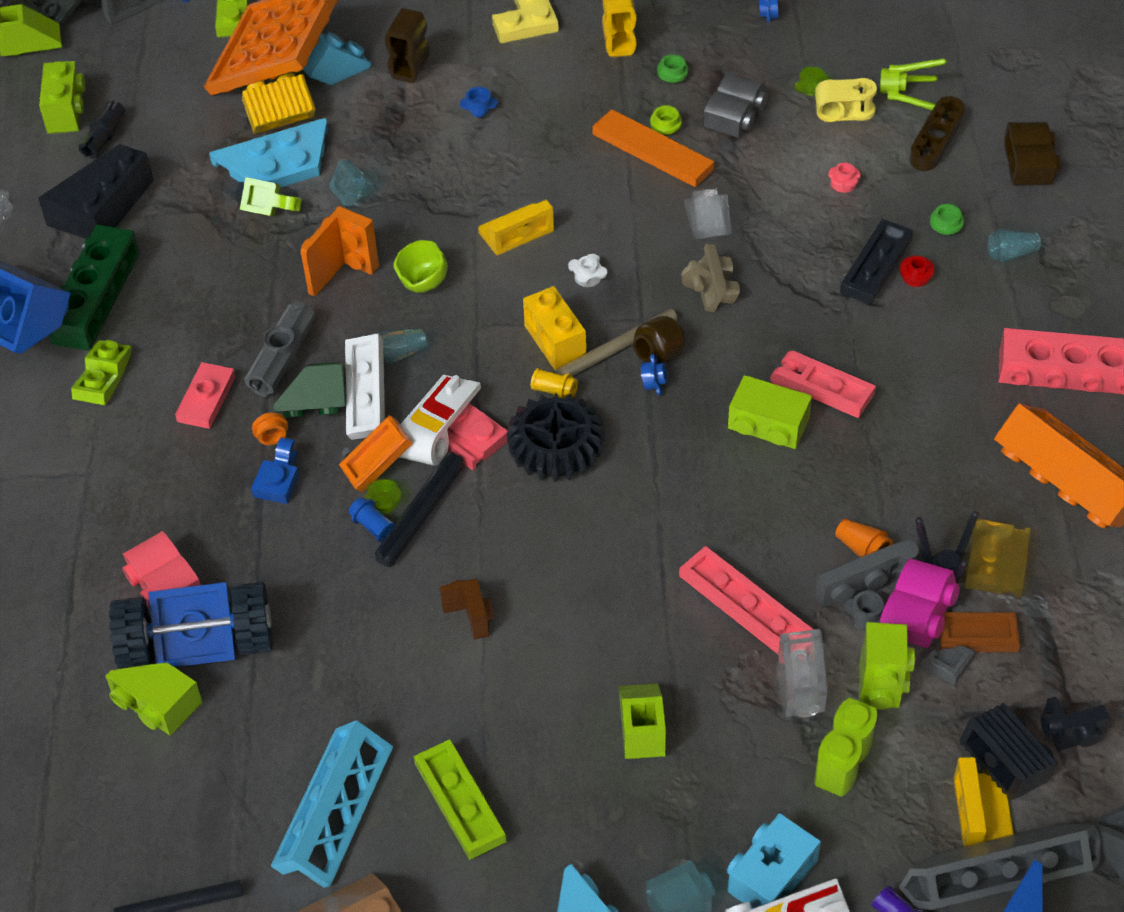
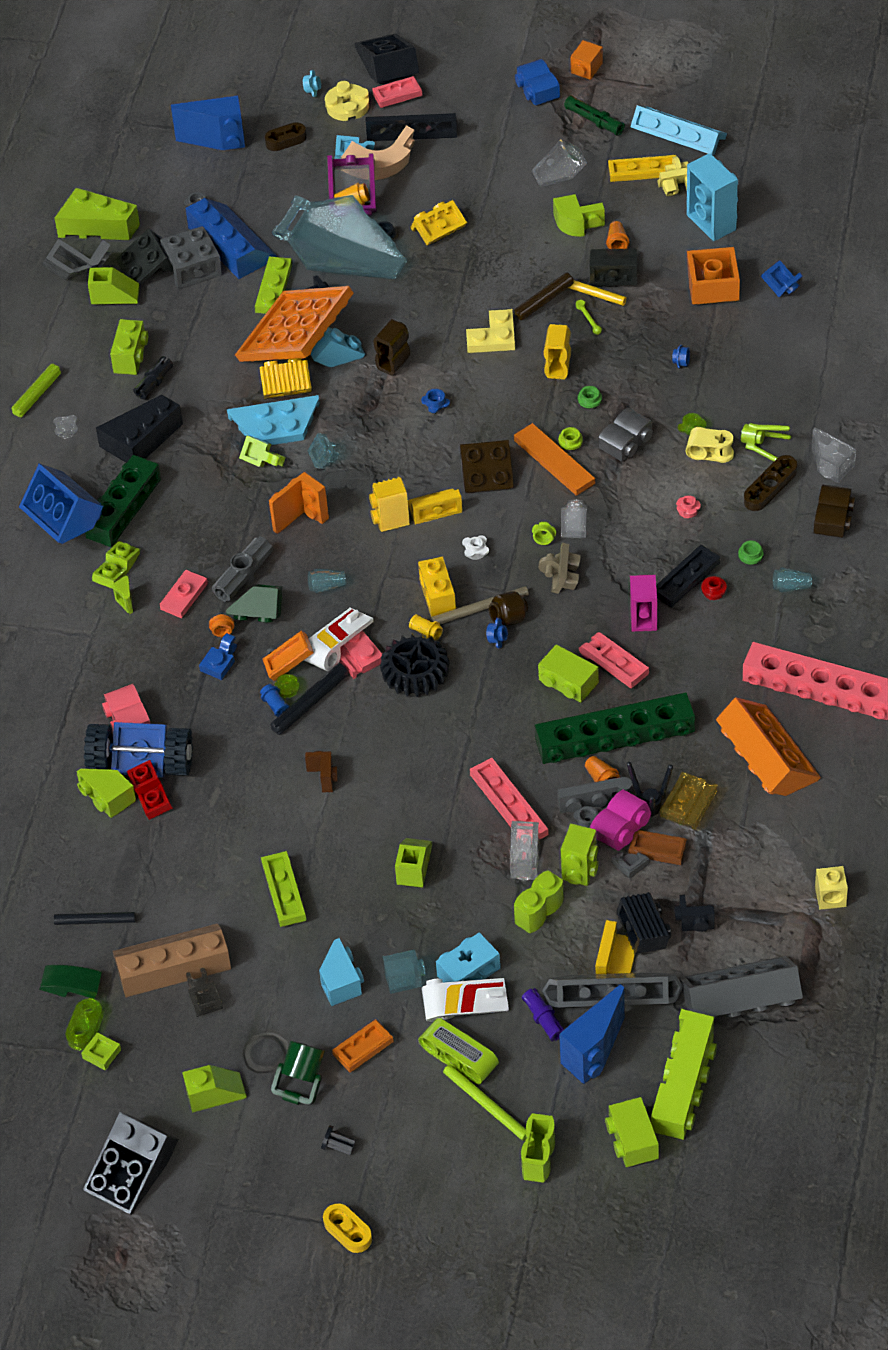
camera: 15 degrees right, 0 degrees up
(120, 409) = (123, 594): none -> lime slope
(220, 682) = (149, 789): none -> red slope
(319, 801) = (195, 872): medium azure fence -> none
(364, 385) = (292, 605): white plate -> none
(421, 266) = (355, 524): lime hair -> none
(462, 231) = (390, 504): none -> yellow brick
(570, 167) = (486, 466): none -> dark brown bracket
(675, 244) = (541, 537): none -> lime plate
(841, 302) = (643, 603): none -> dark pink brick
(858, 475) = (614, 728): none -> dark green brick
(999, 88) = (832, 456): none -> clear slope

